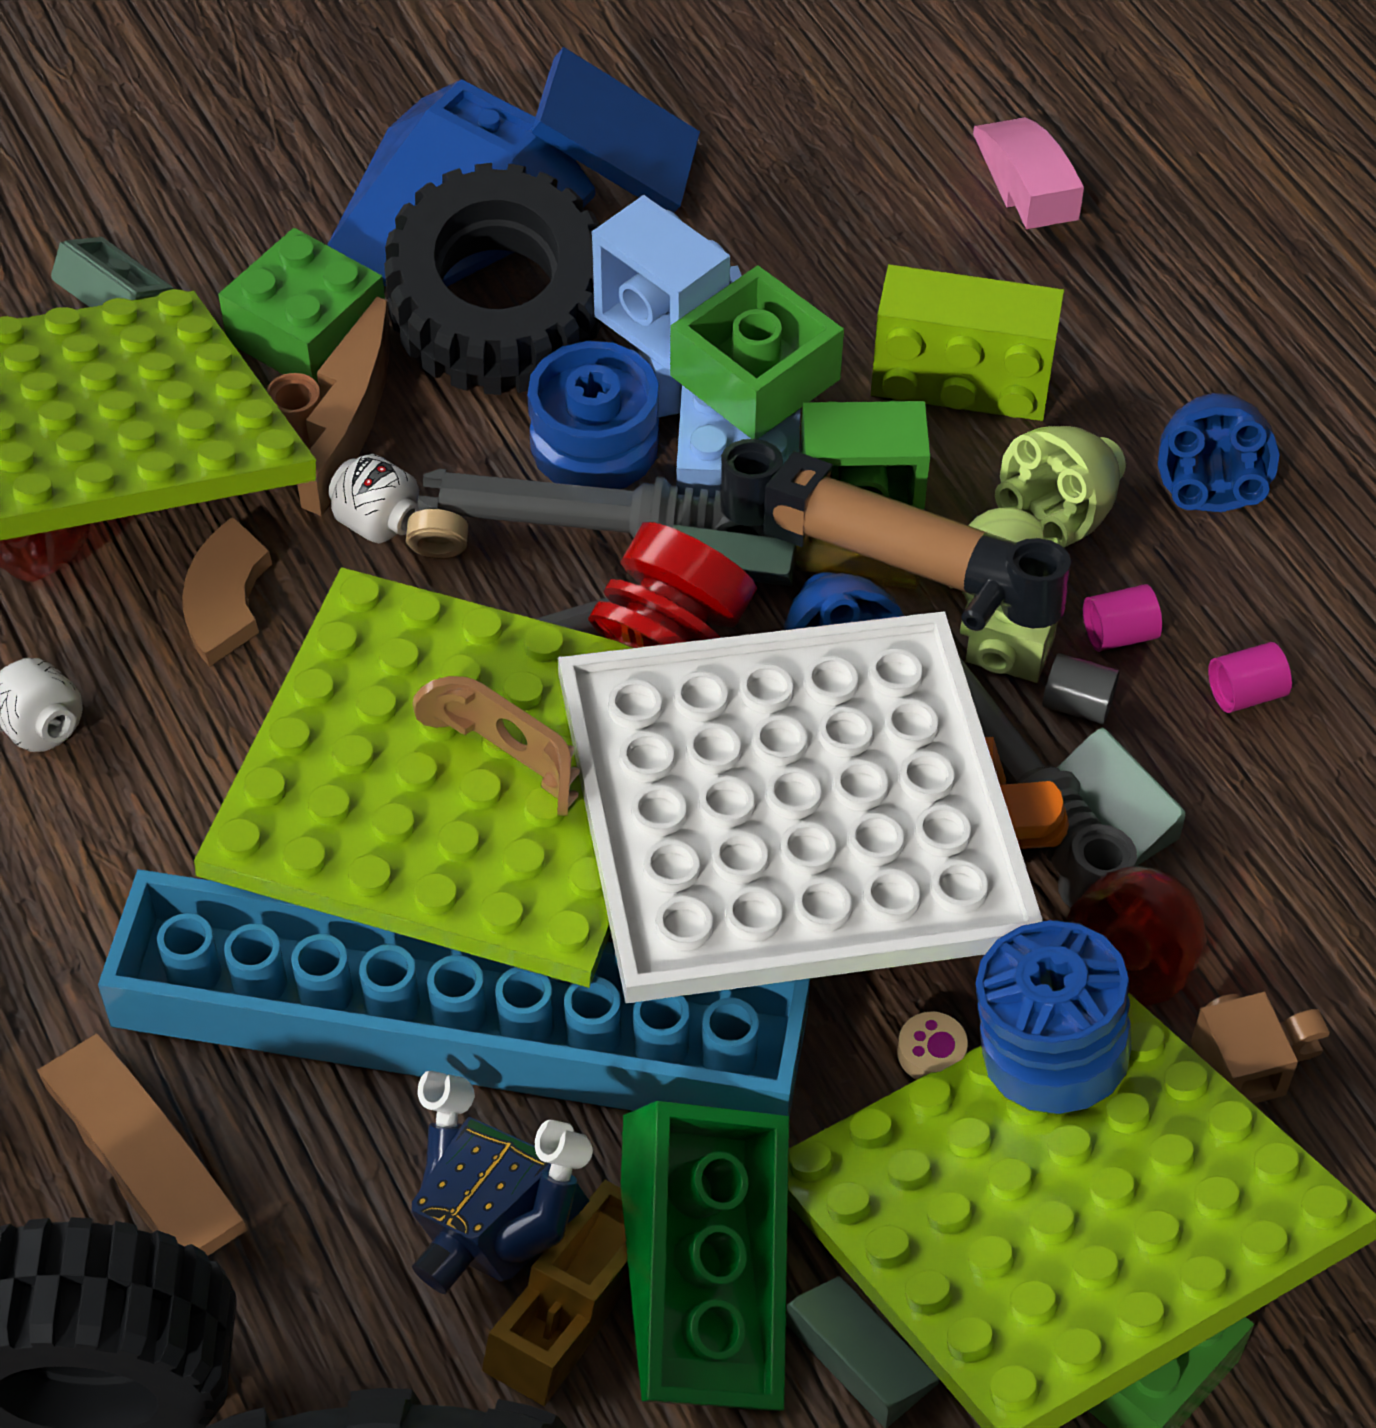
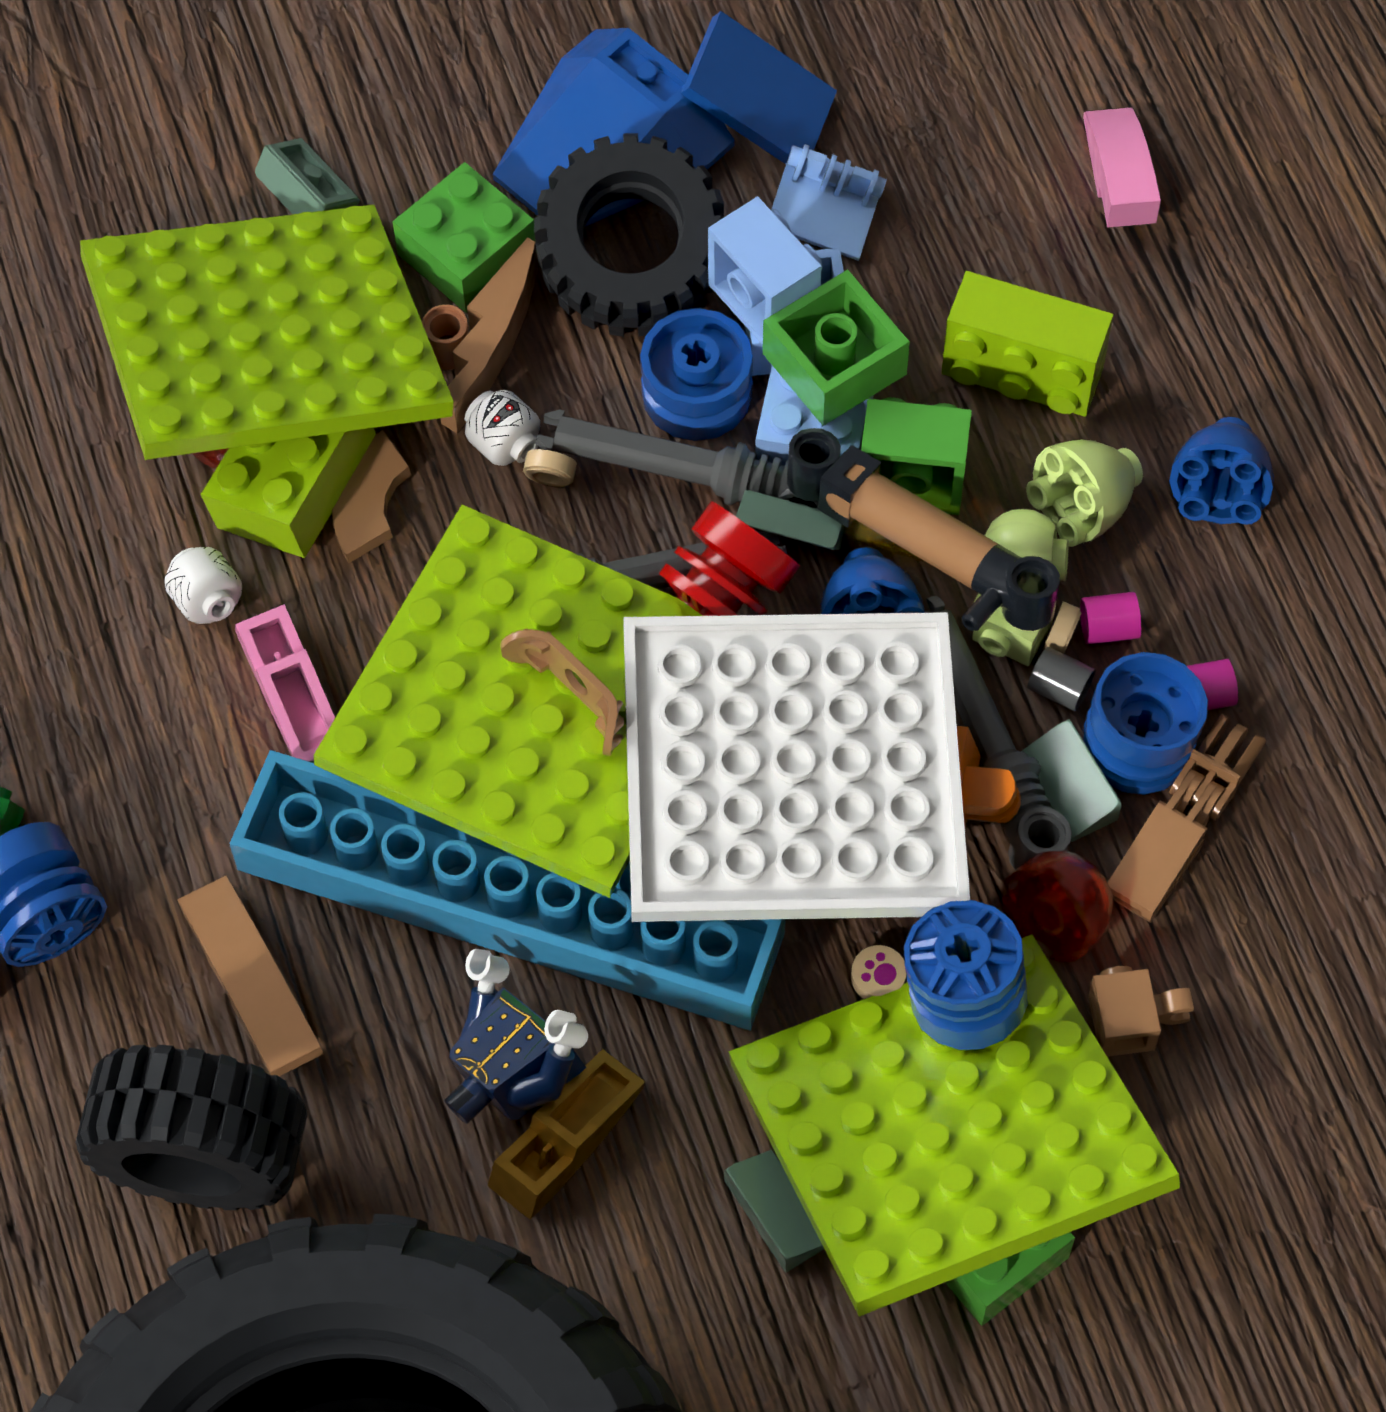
camera: 10 degrees right, 10 degrees up
(121, 581) = (284, 488): none -> lime brick
(146, 793) = (287, 680): none -> bright pink slope
(707, 1253) = (669, 1121): green slope -> none
(734, 225) = (828, 200): none -> light blue hinge
(1070, 632) = (1063, 627): none -> tan tile
(1195, 715) = (1151, 699): none -> blue wheel
(1255, 843) = (1169, 835): none -> medium nougat arm

